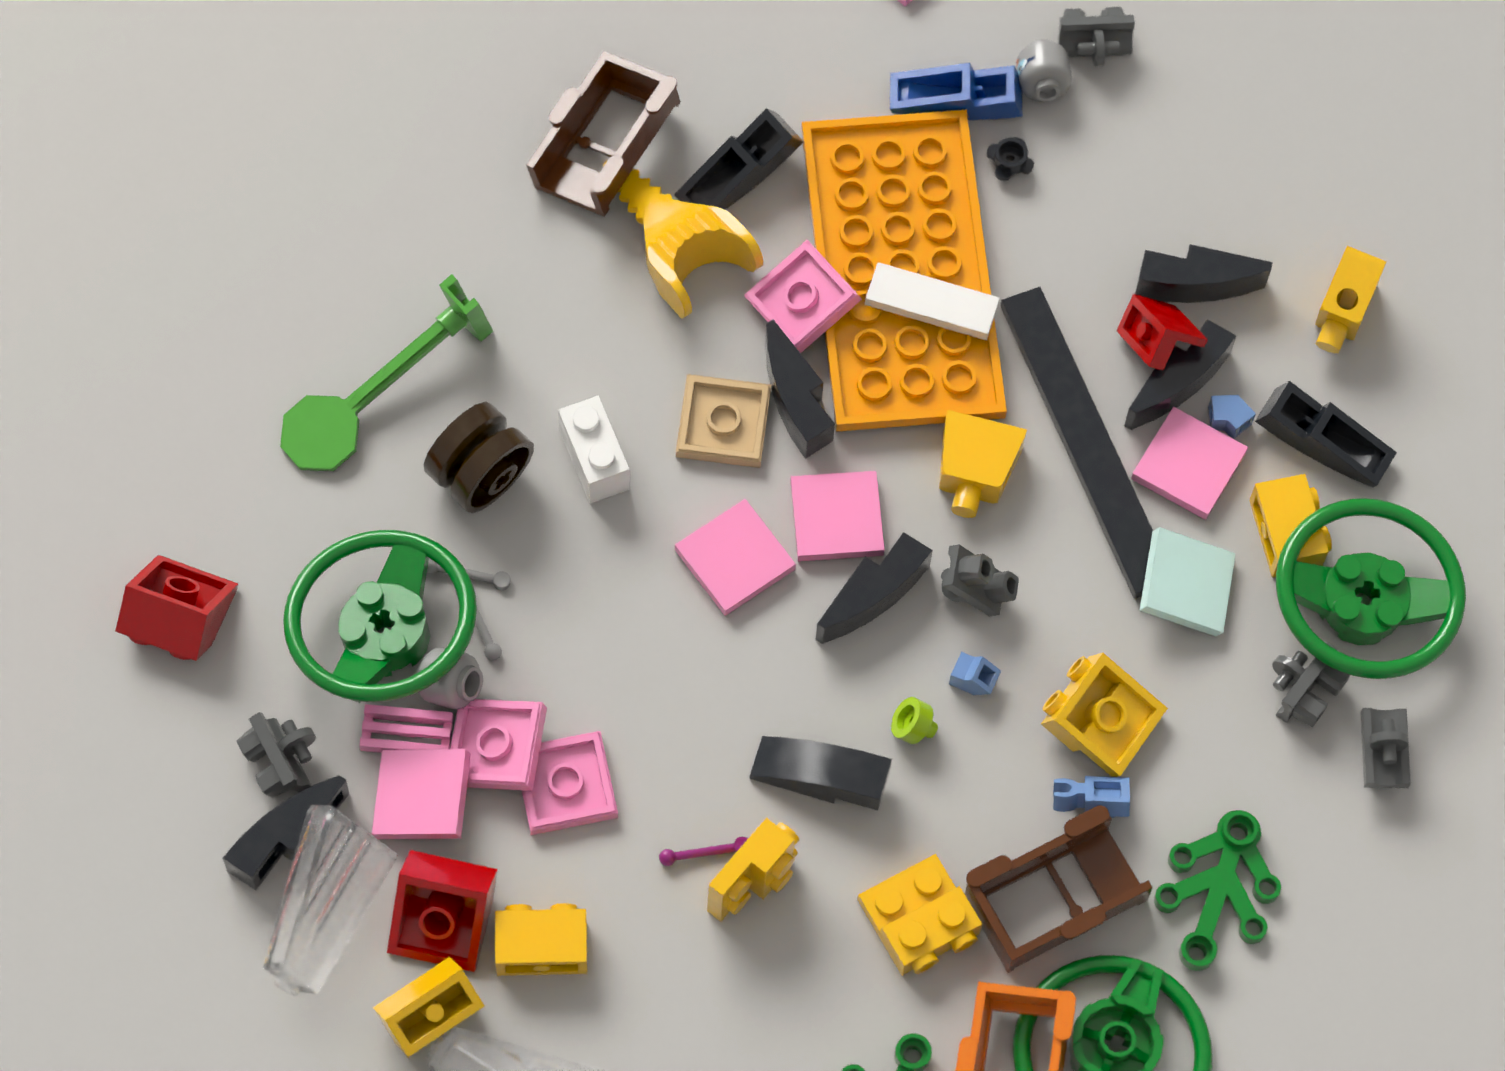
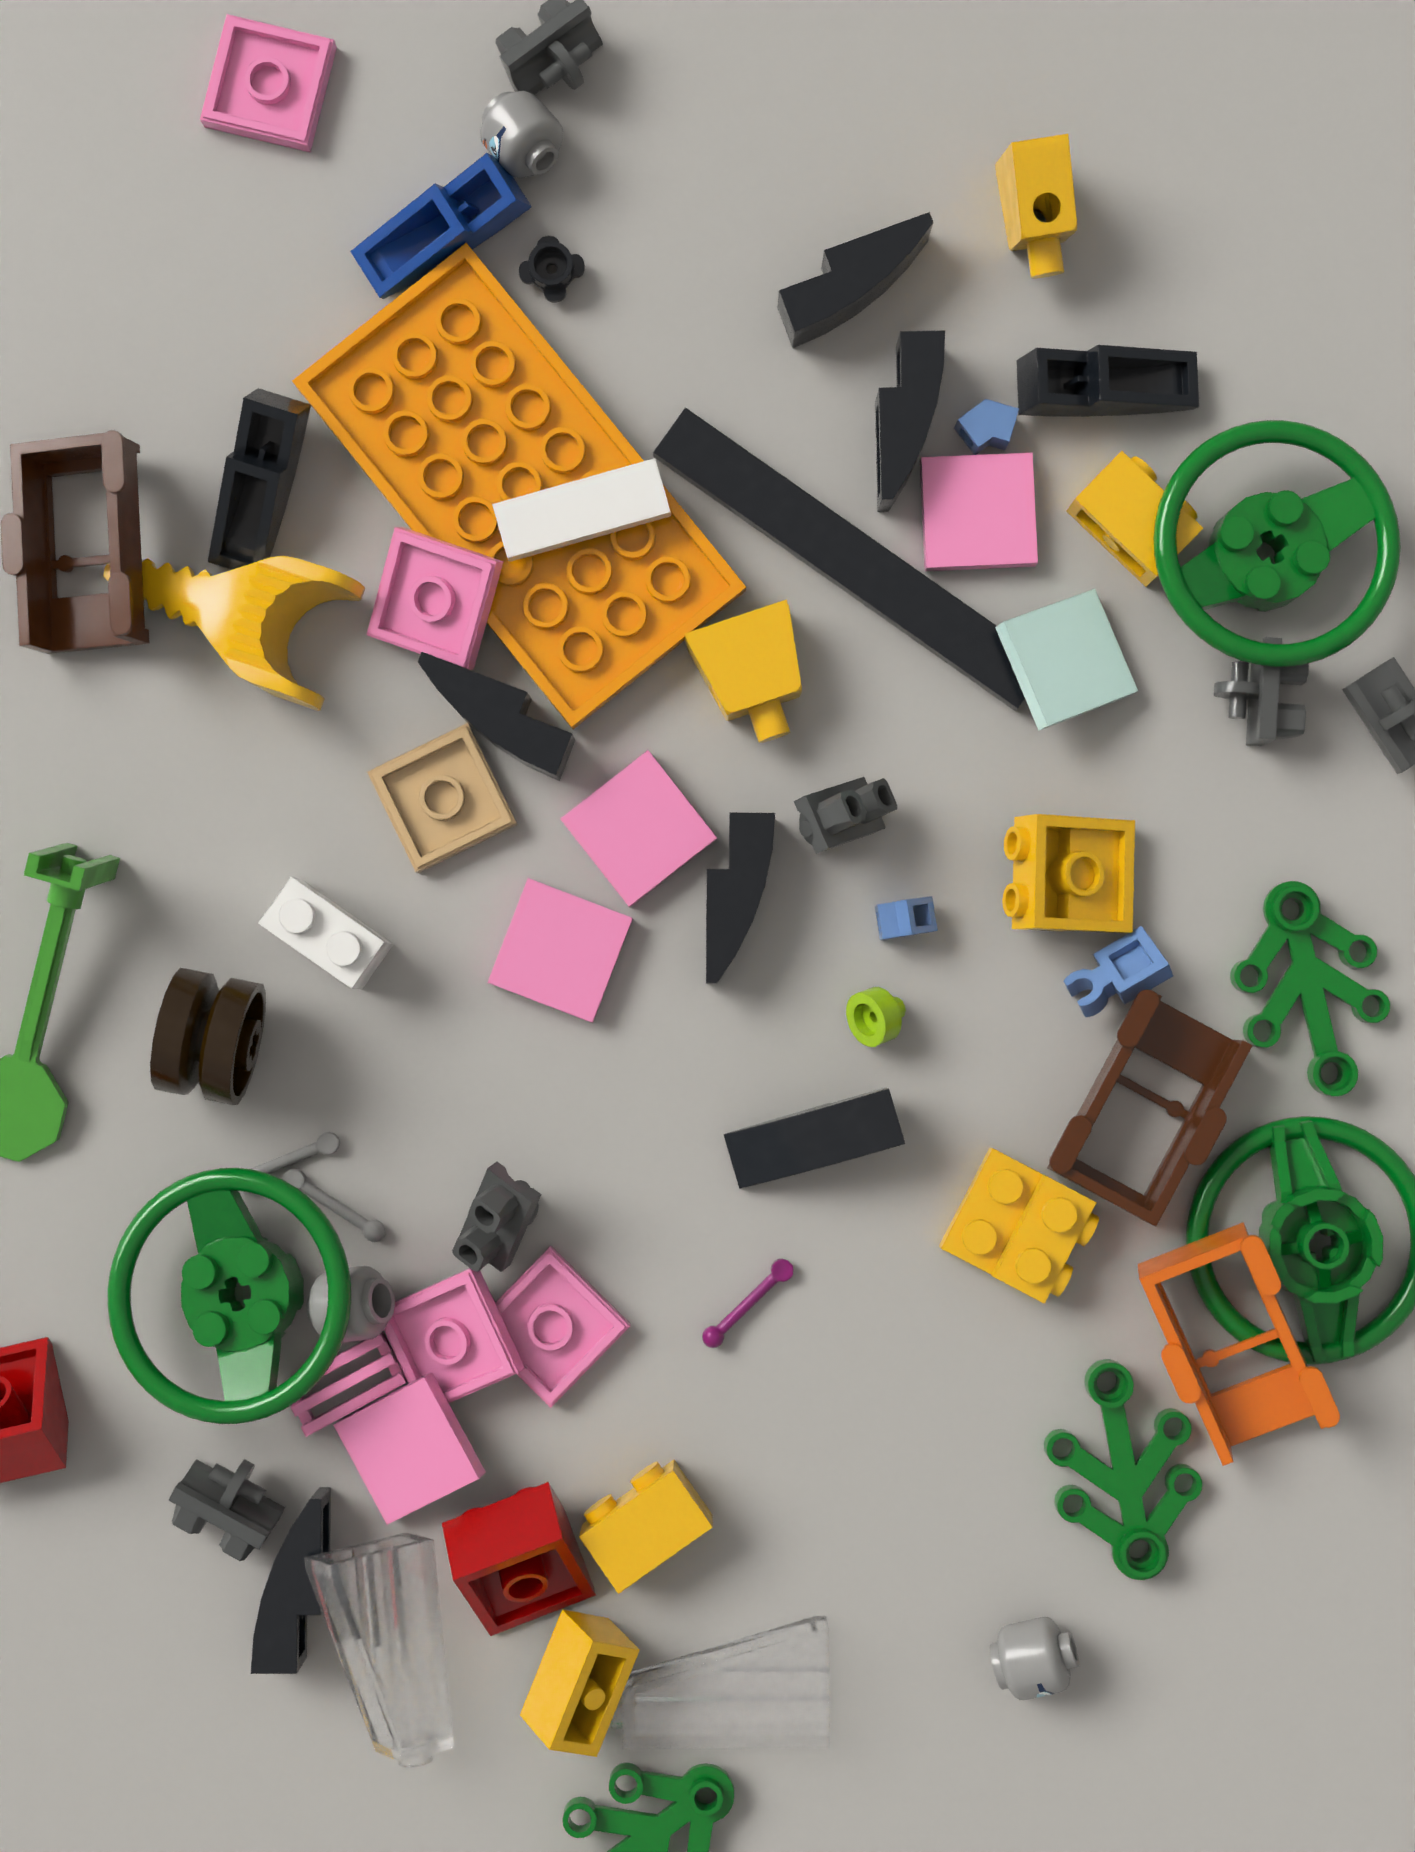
camera: 30 degrees left, 20 degrees up
(584, 683) = (496, 1220): none -> dark grey hips
(758, 865) = (825, 1297): yellow plate -> none
(1154, 329) = (854, 381): red panel -> none

